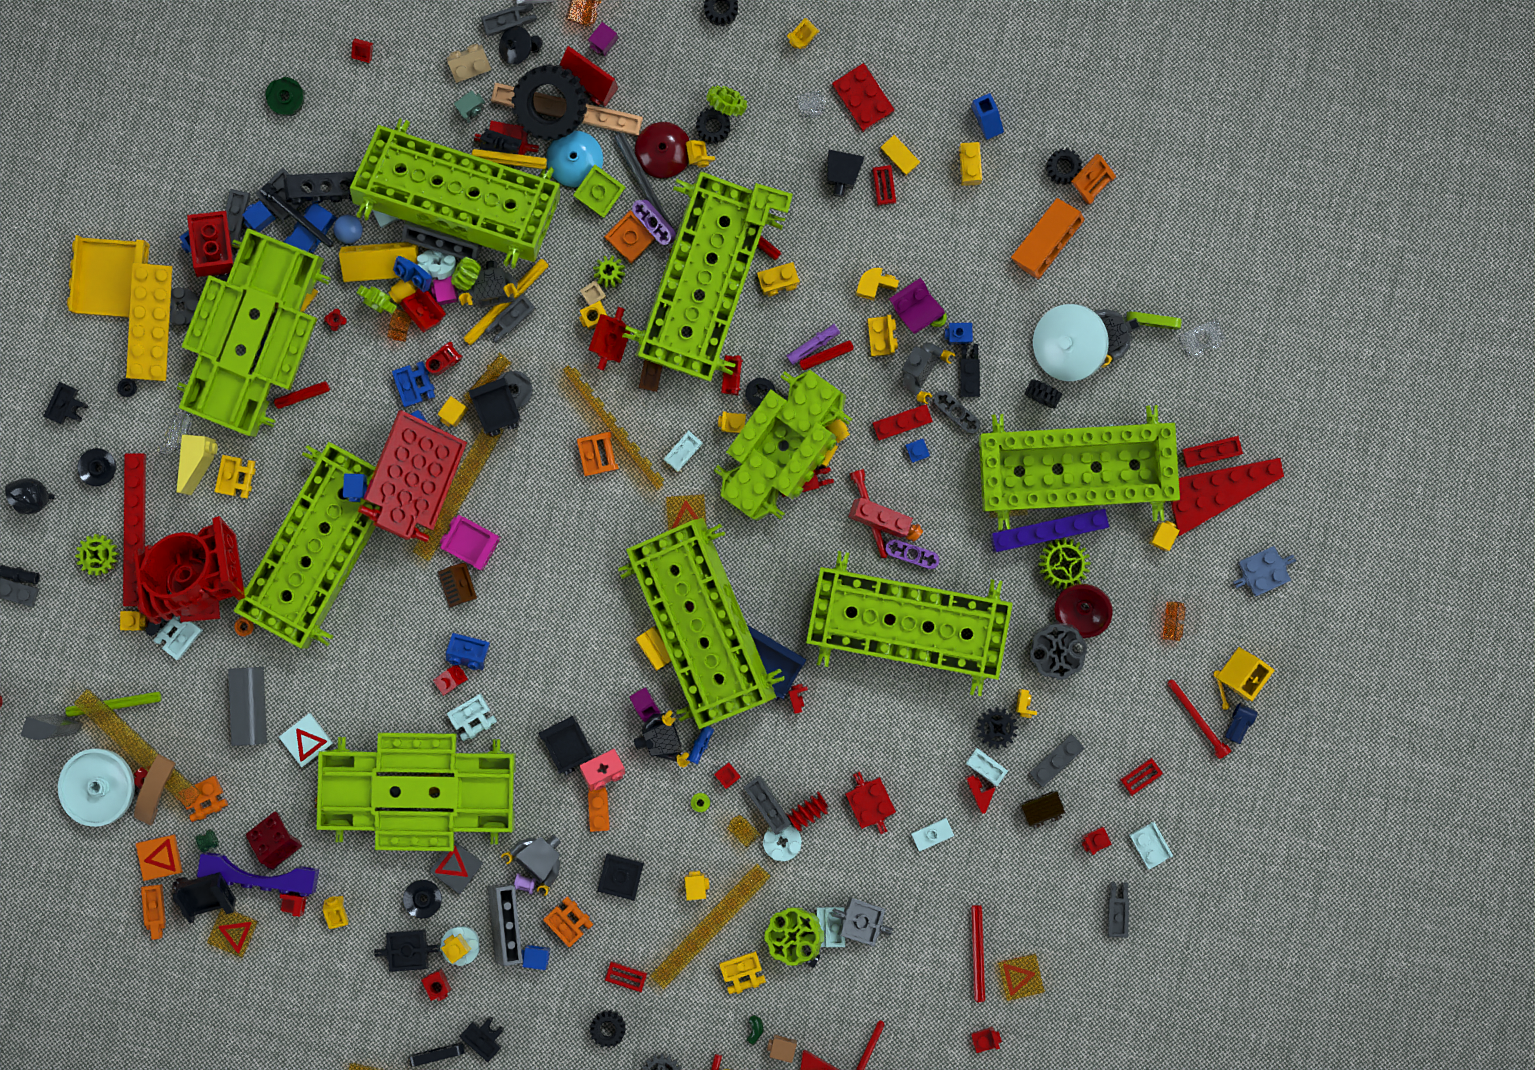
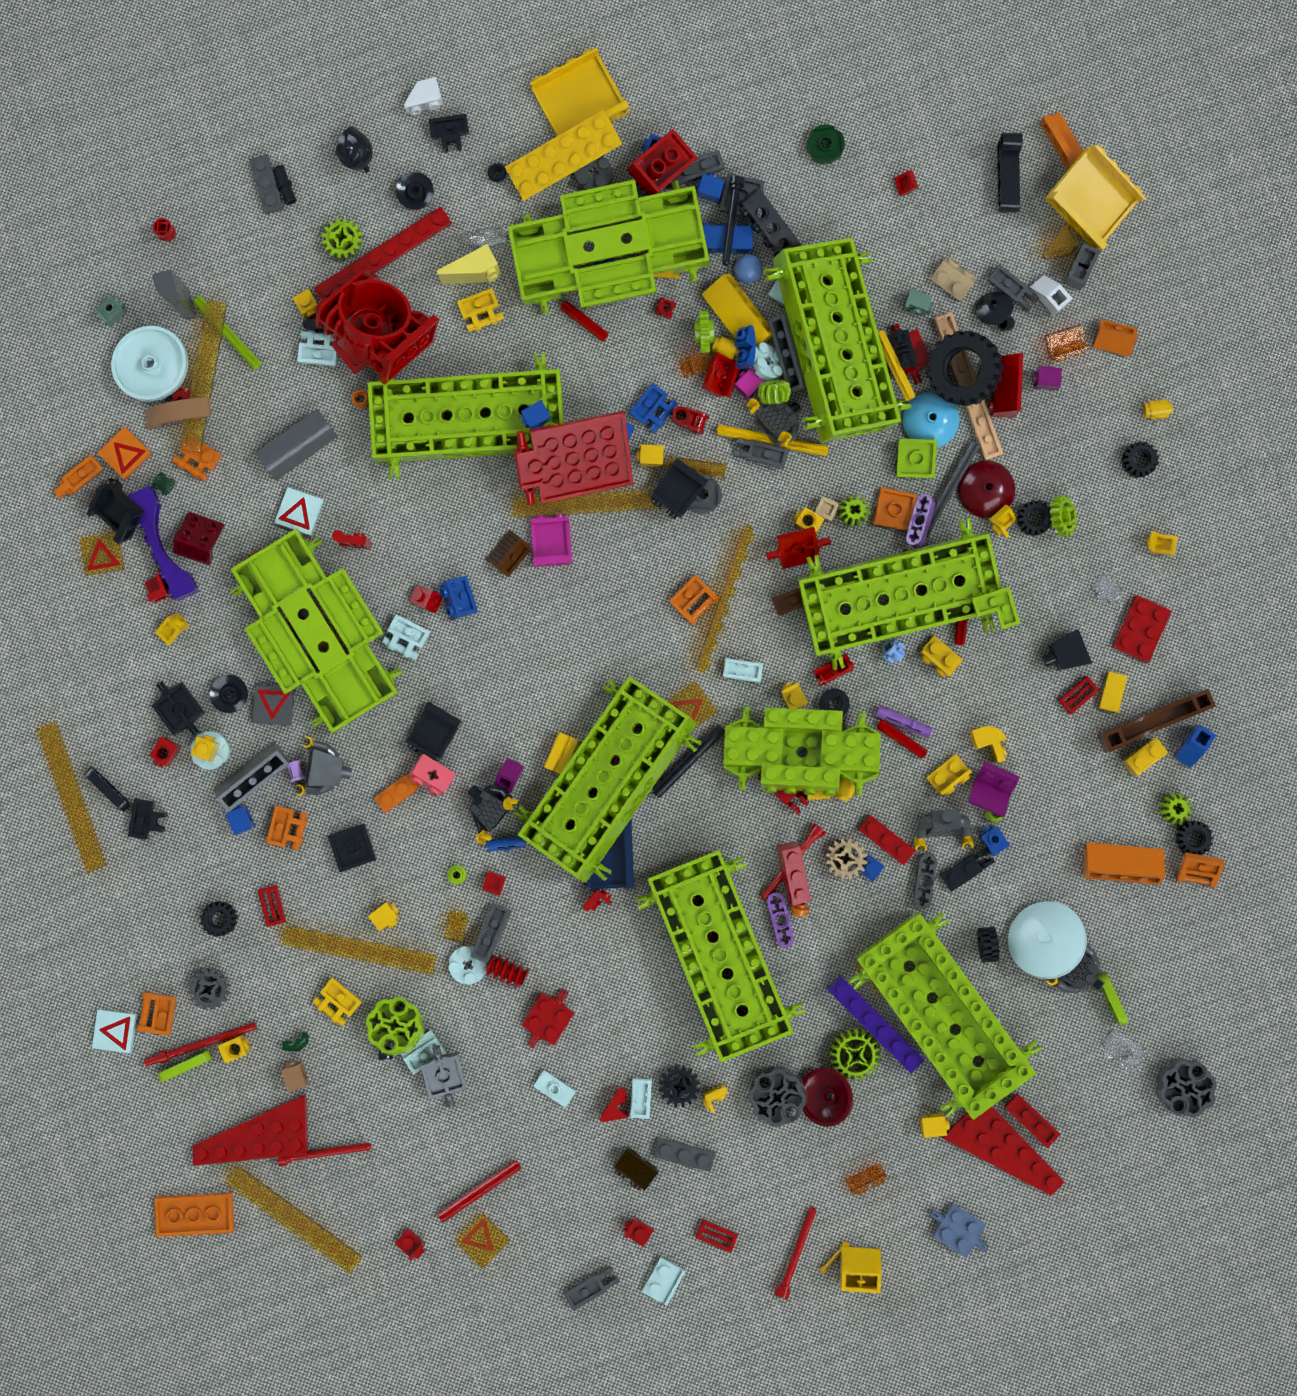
camera: 55 degrees right, 0 degrees up
(21, 408) = (424, 96): none -> white slope
(34, 795) = (112, 316): none -> sand green brick
(362, 707) = (358, 540): none -> red plate
(730, 545) = (688, 761): none -> black axle
(748, 315) = (893, 651): none -> light blue gear
(890, 459) = (845, 867): none -> tan gear
(946, 134) = (1156, 720): none -> reddish brown arch
(1028, 159) = (1171, 814): none -> lime gear
(1243, 718) = (821, 1291): dark blue piece -> none
(1248, 298) = (1184, 1069): none -> dark grey connector

